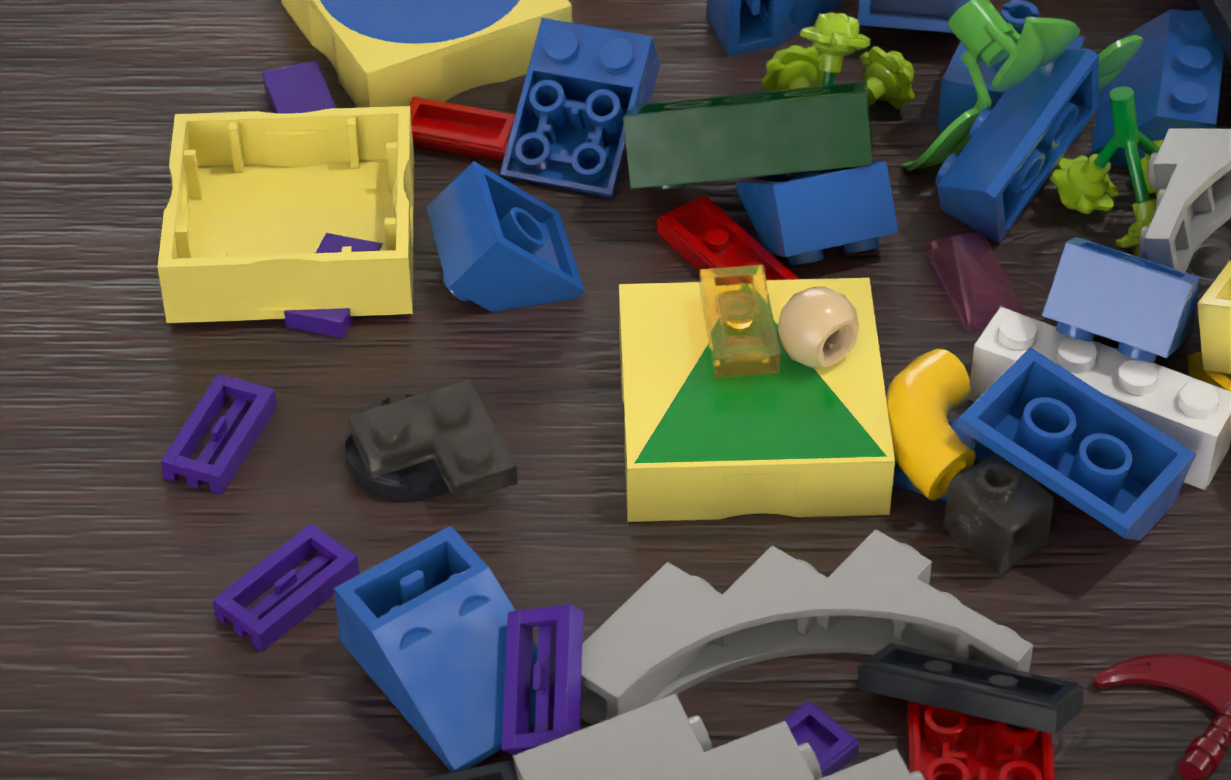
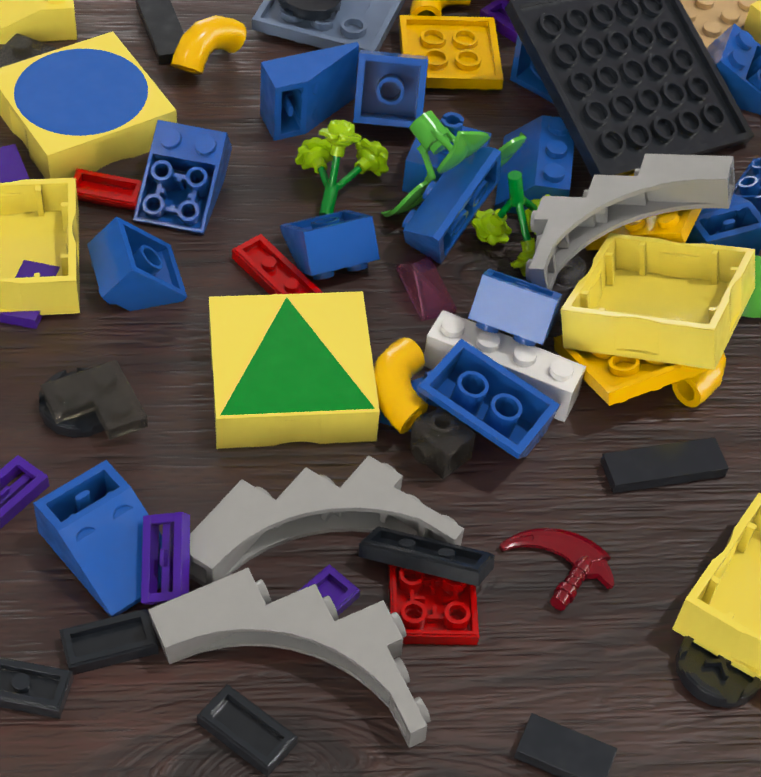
camera: 10 degrees left, 5 degrees up
(739, 321) = (283, 322): clear yellow plate -> none
(748, 135) = (287, 197): dark green brick -> none
(818, 327) = (332, 326): tan piece -> none

